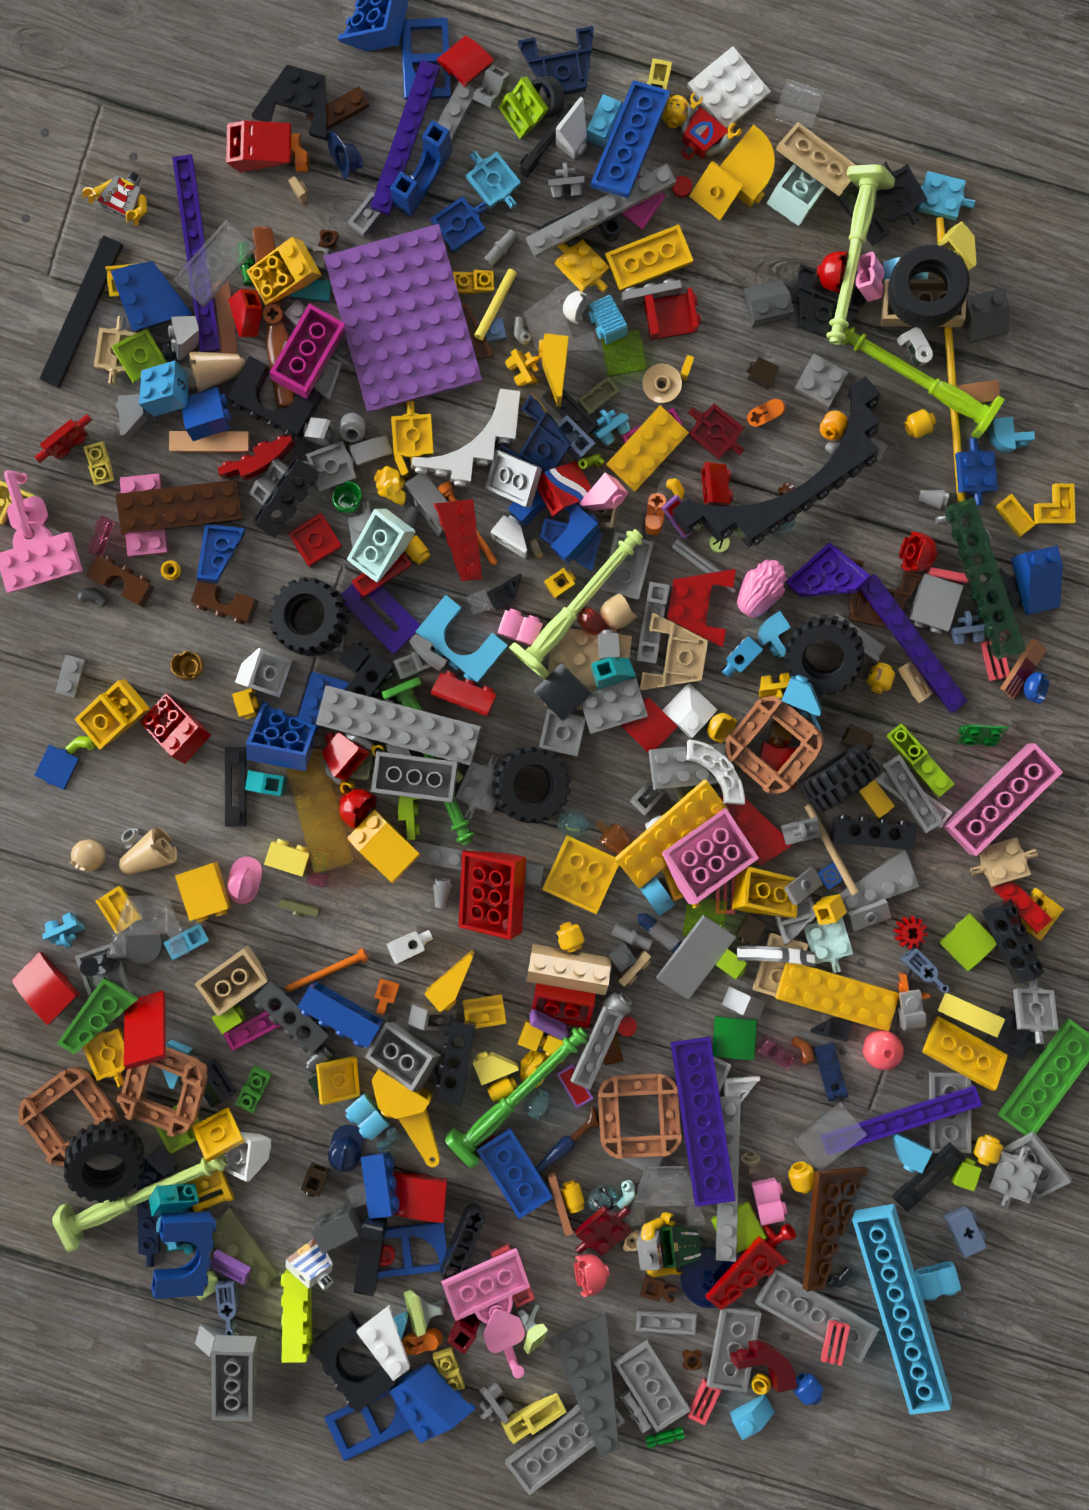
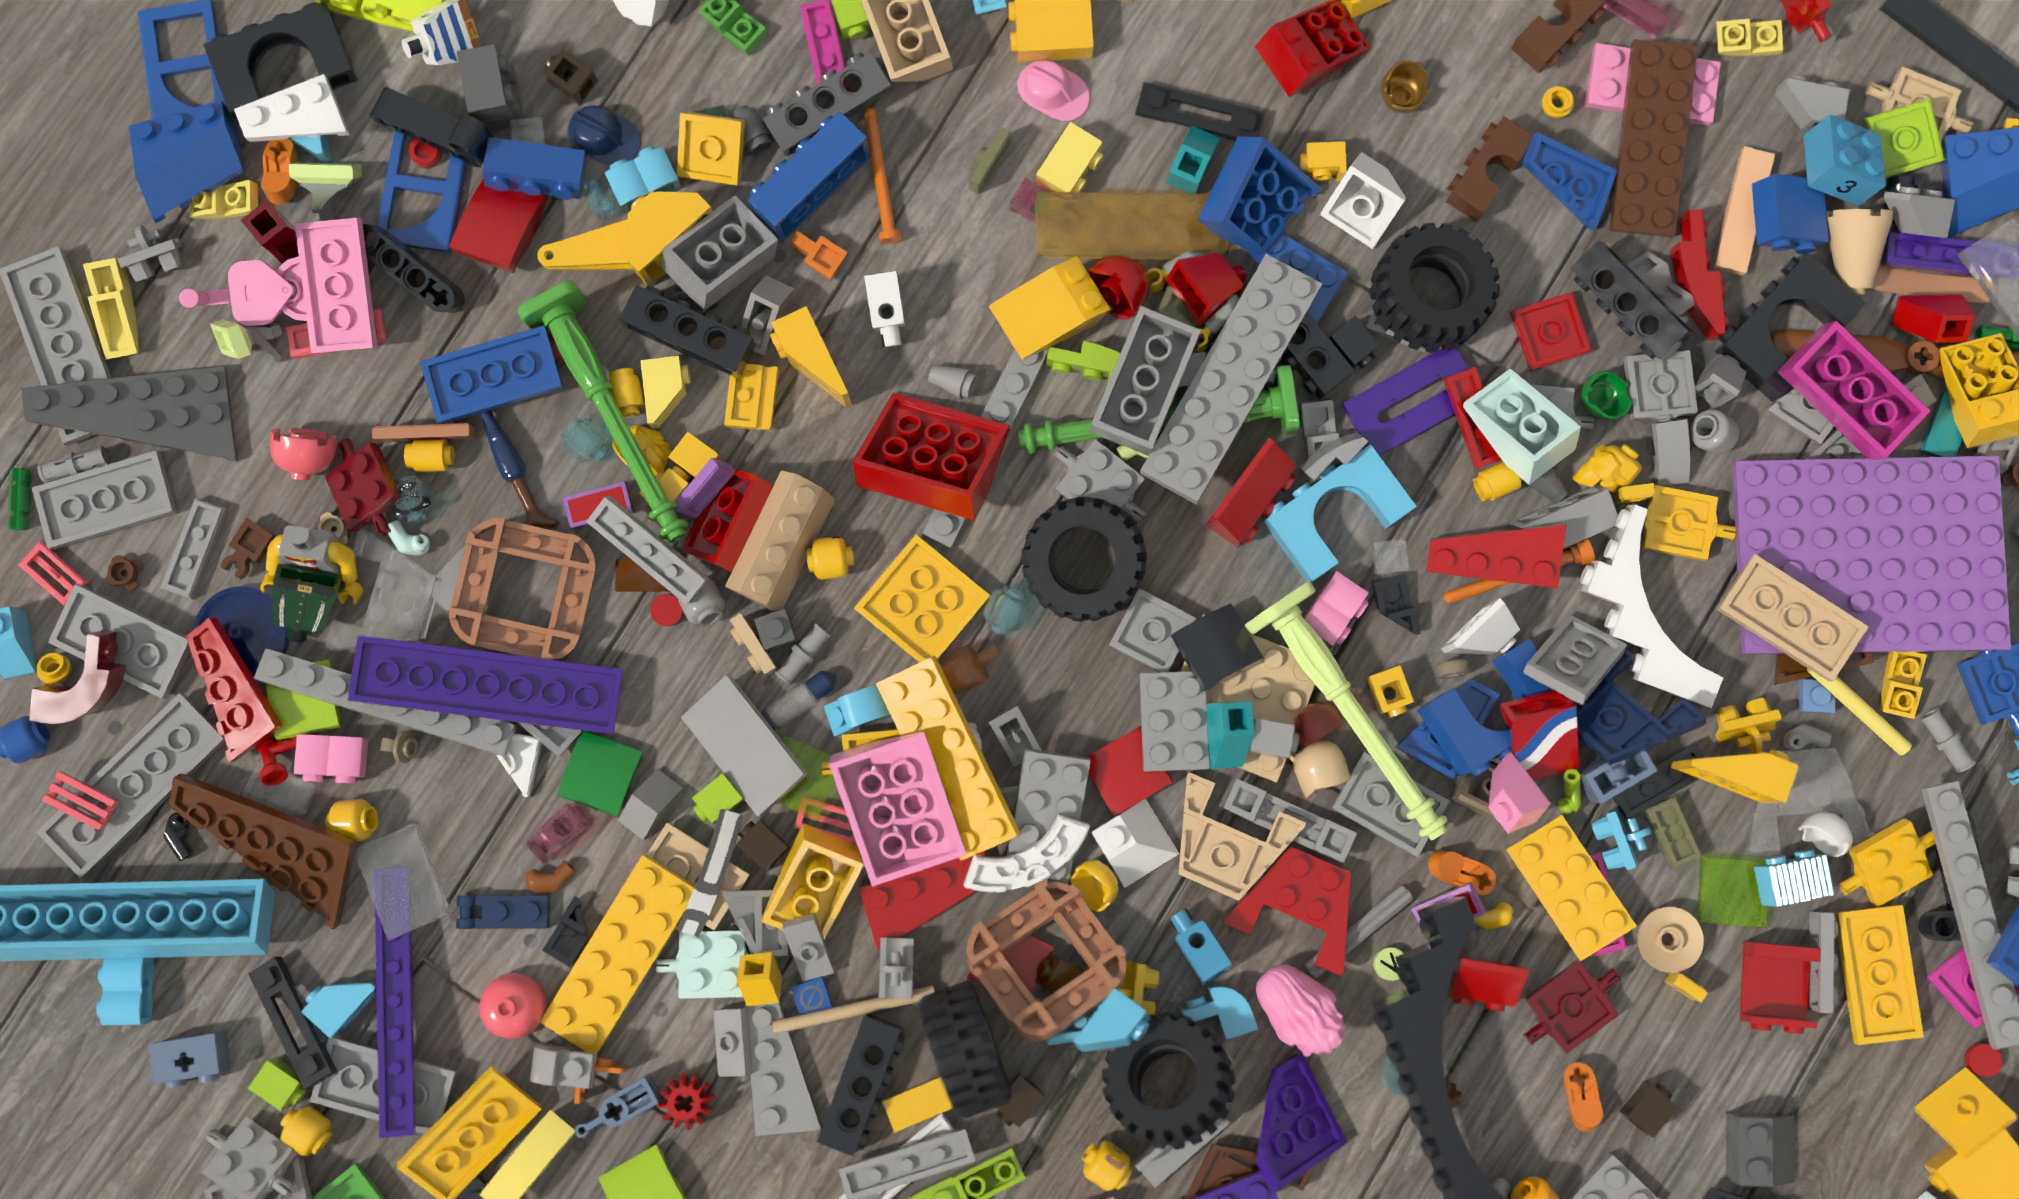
camera: 105 degrees right, 5 degrees down
(455, 356) = (1792, 618): none -> tan plate

